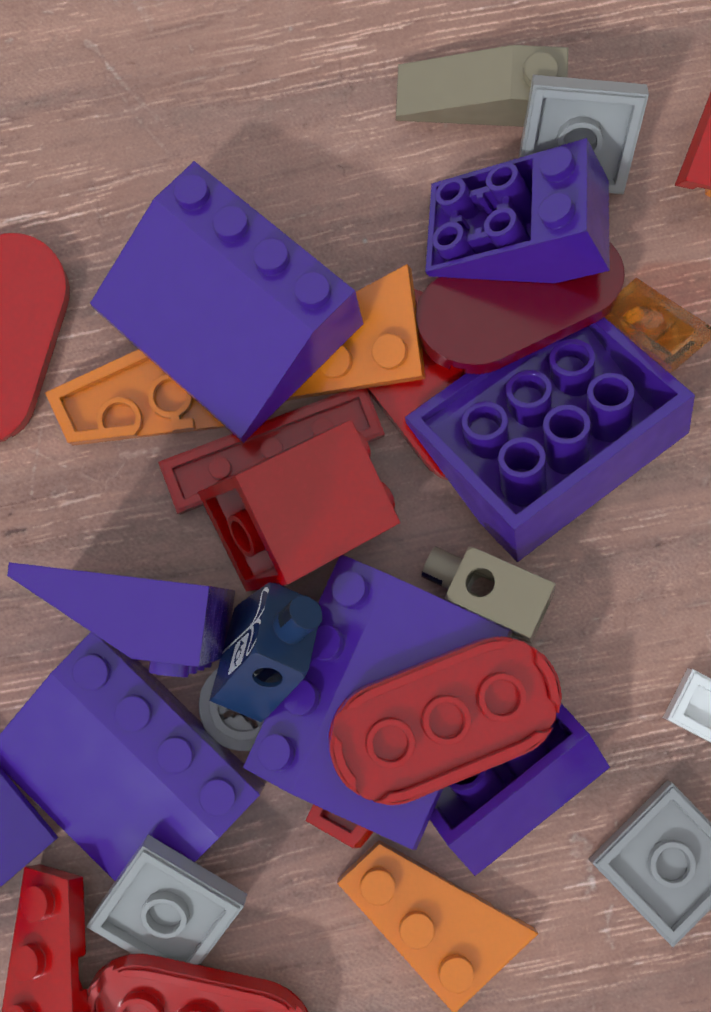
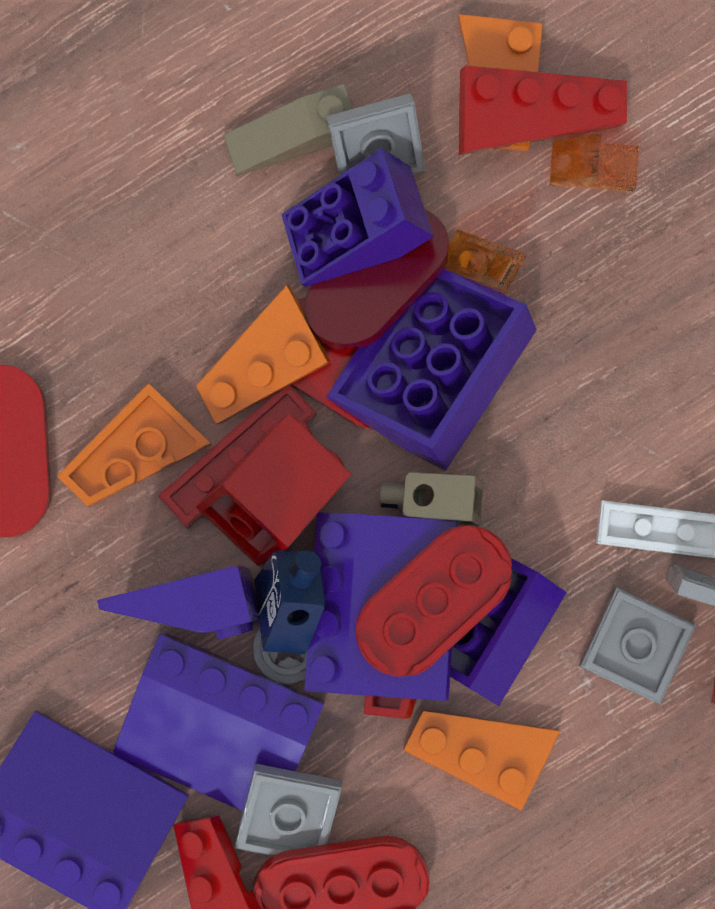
camera: 20 degrees left, 0 degrees up
(225, 301) = (164, 362): dark purple slope -> none

